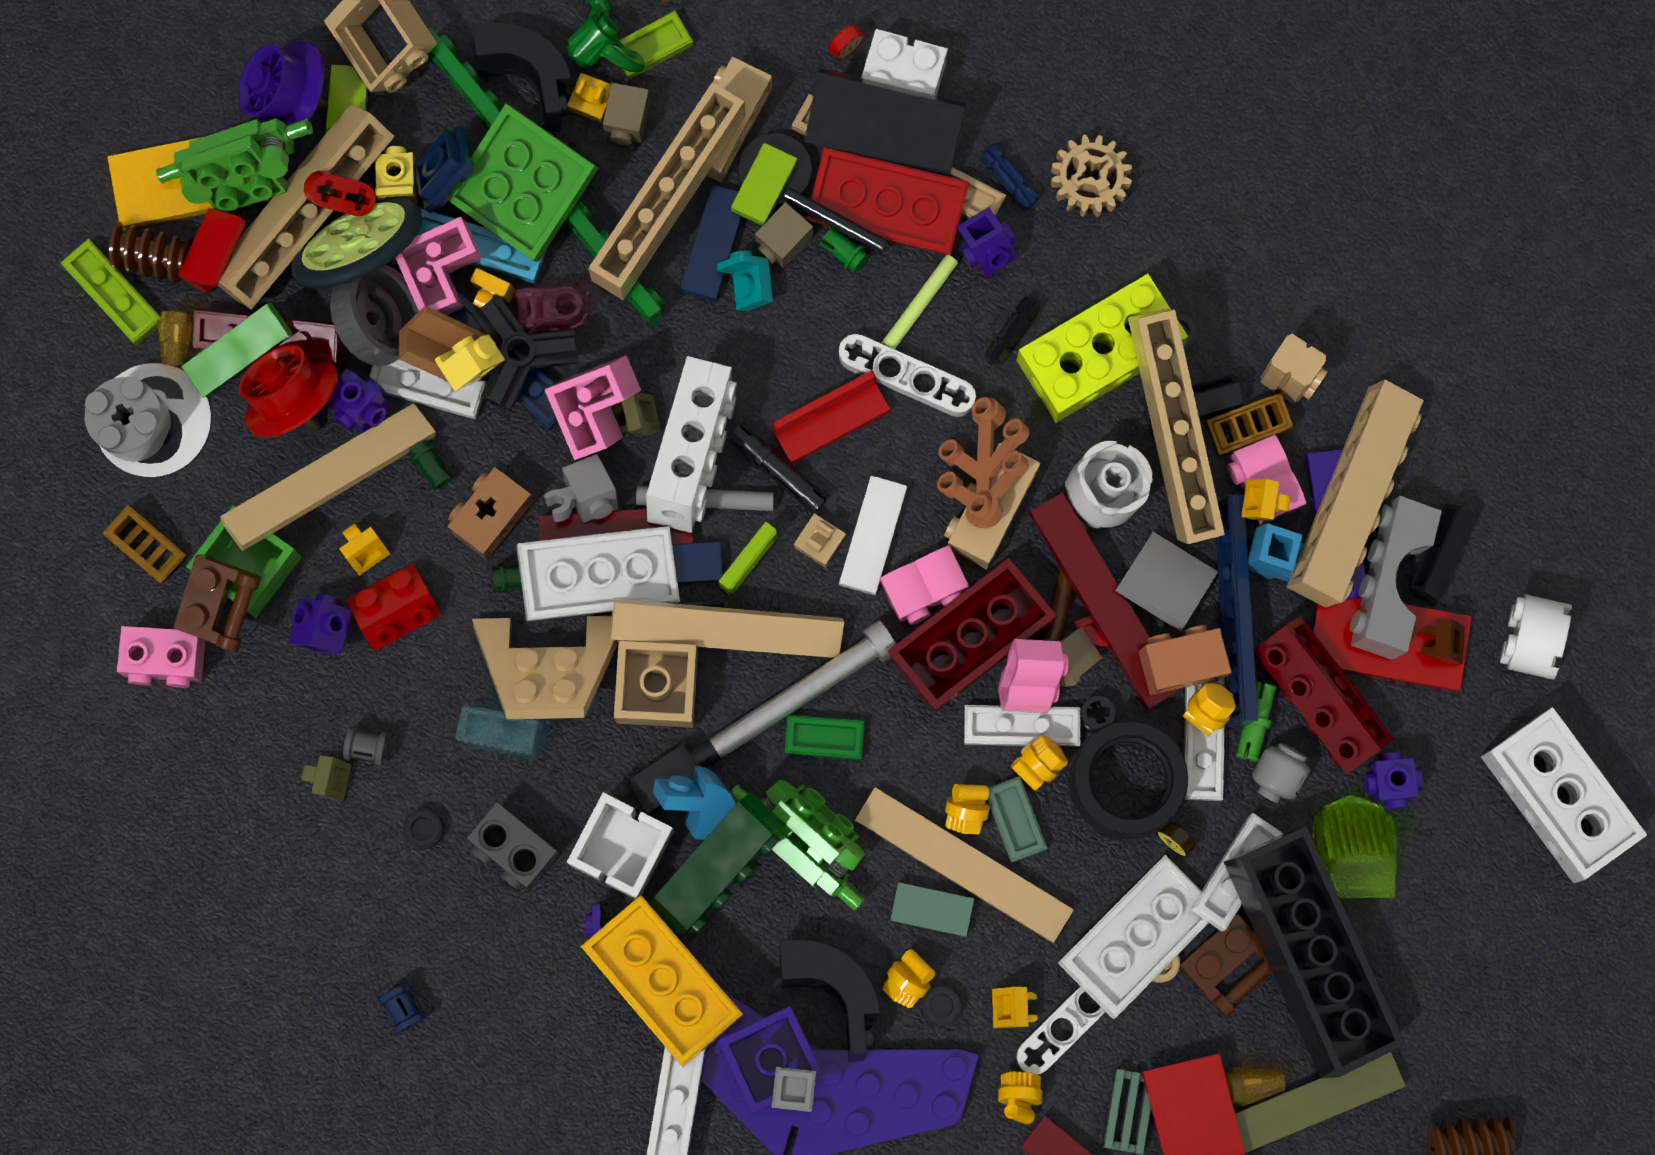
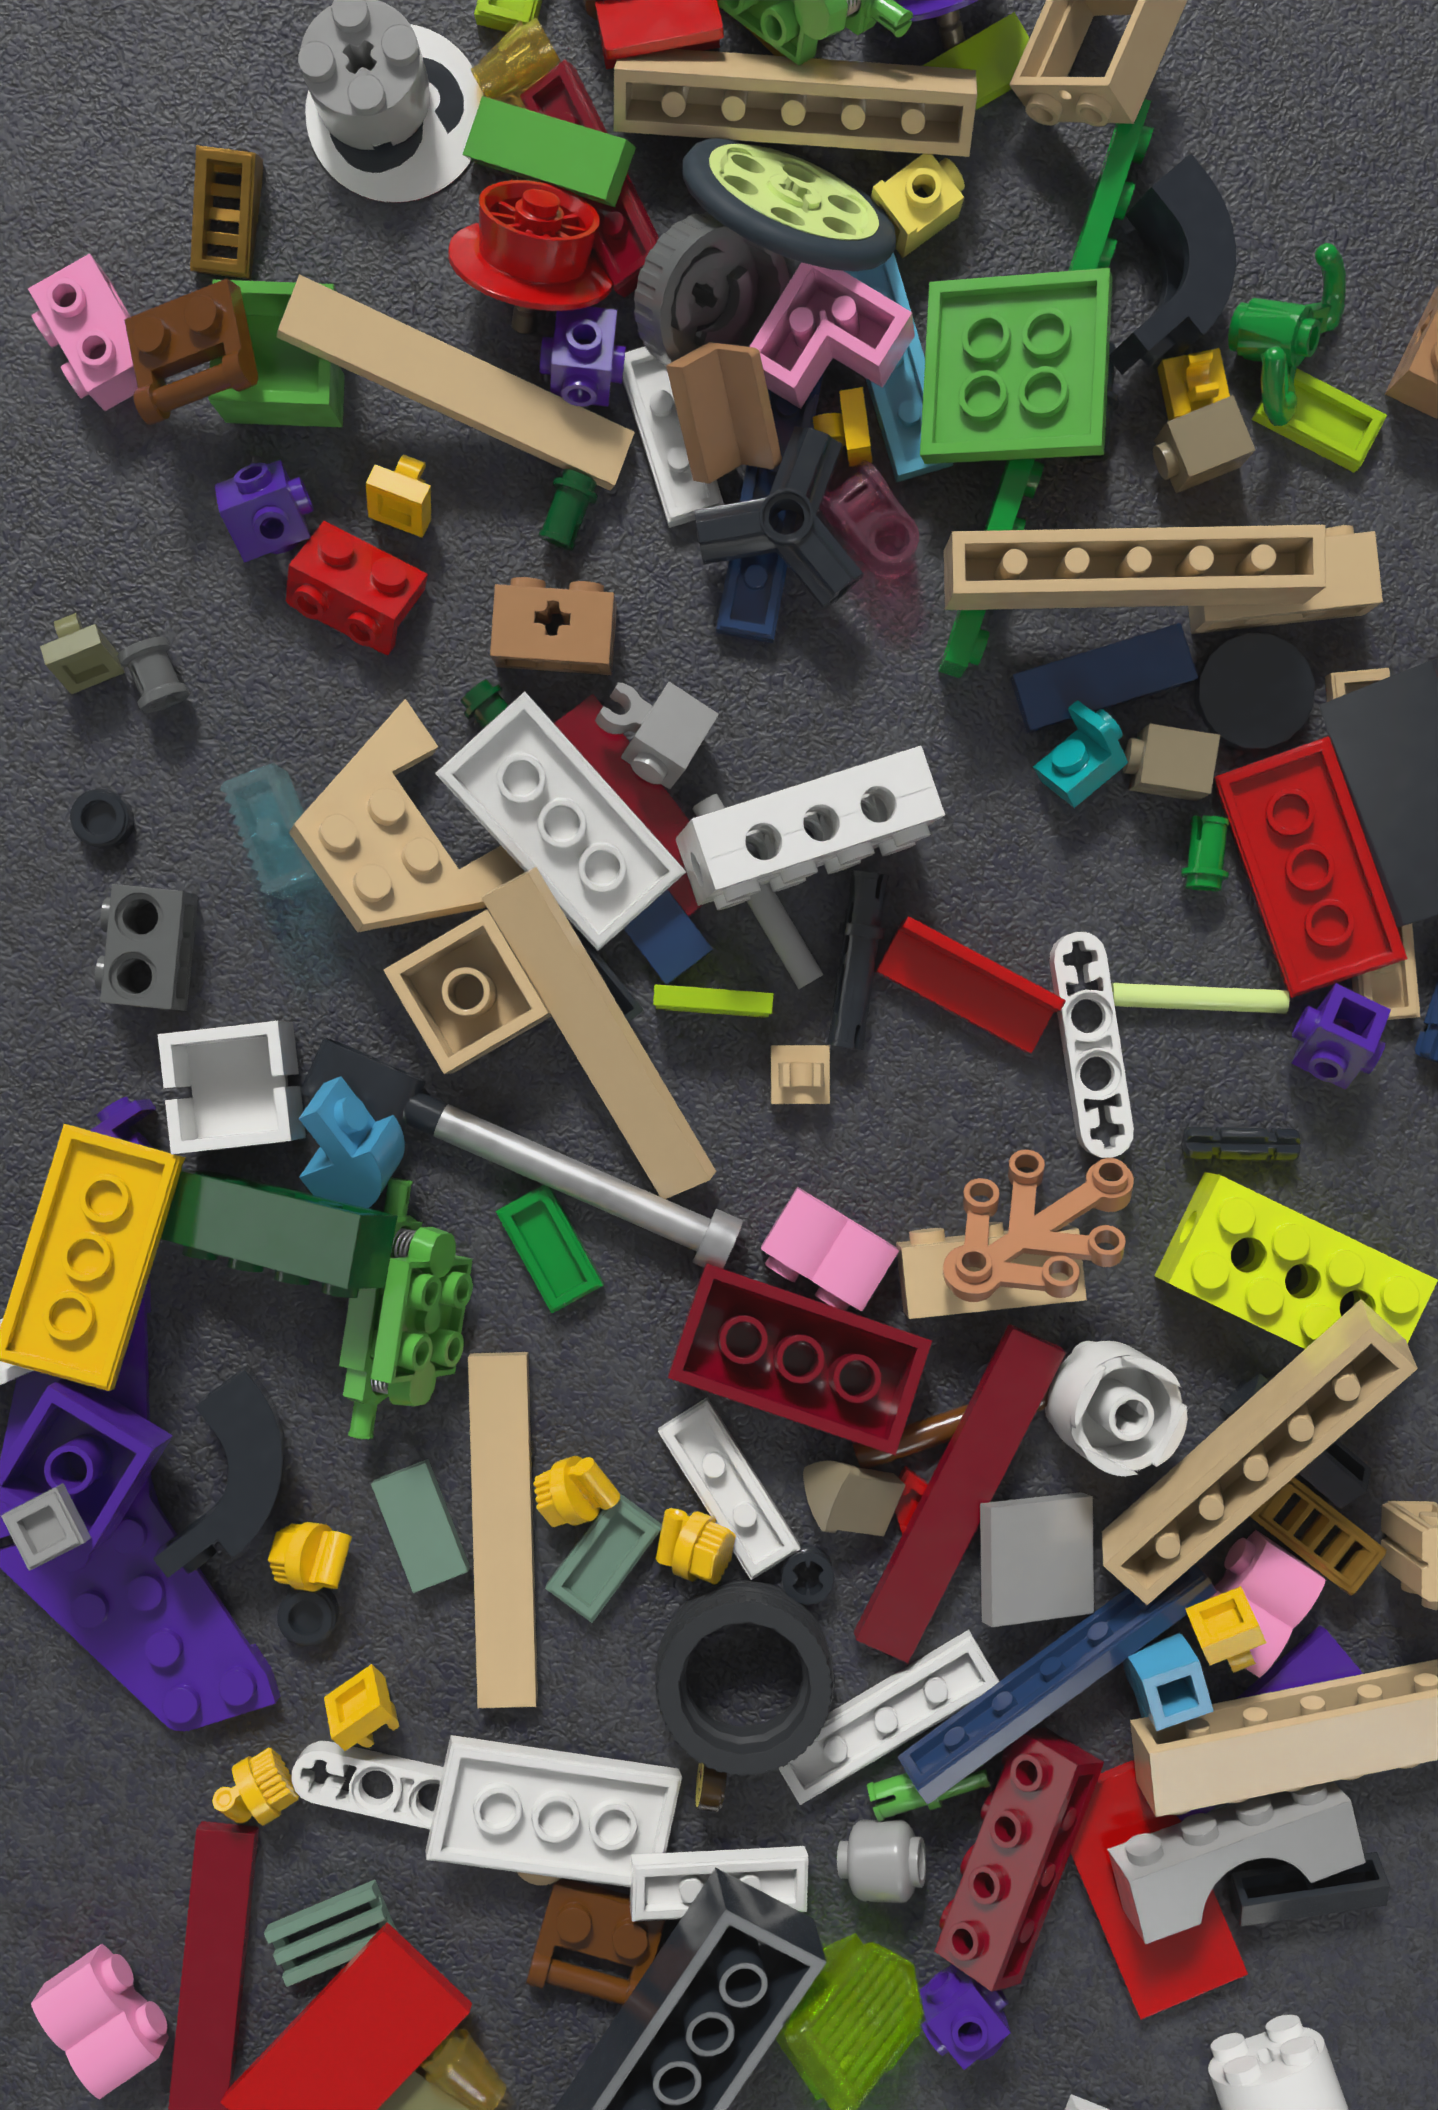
camera: 55 degrees right, 10 degrees up
(338, 201) = (854, 129): red beam -> none
(443, 167) = (968, 249): dark blue piece -> none
(469, 361) = (727, 462): light yellow brick -> none
(585, 402) = (775, 654): bright pink brick -> none
(639, 414) = (810, 733): olive tile -> none
(764, 184) = (1226, 691): lime tile -> none
(835, 220) = (1238, 816): black bar -> none
(873, 535) = (851, 1139): white tile -> none
(1032, 676) = (795, 1473): bright pink brick -> none
(1184, 660) = (945, 1655): nougat brick -> none
(1210, 708) = (905, 1725): yellow piece -> none
(1448, 643) = (1195, 1973): reddish brown tile -> none

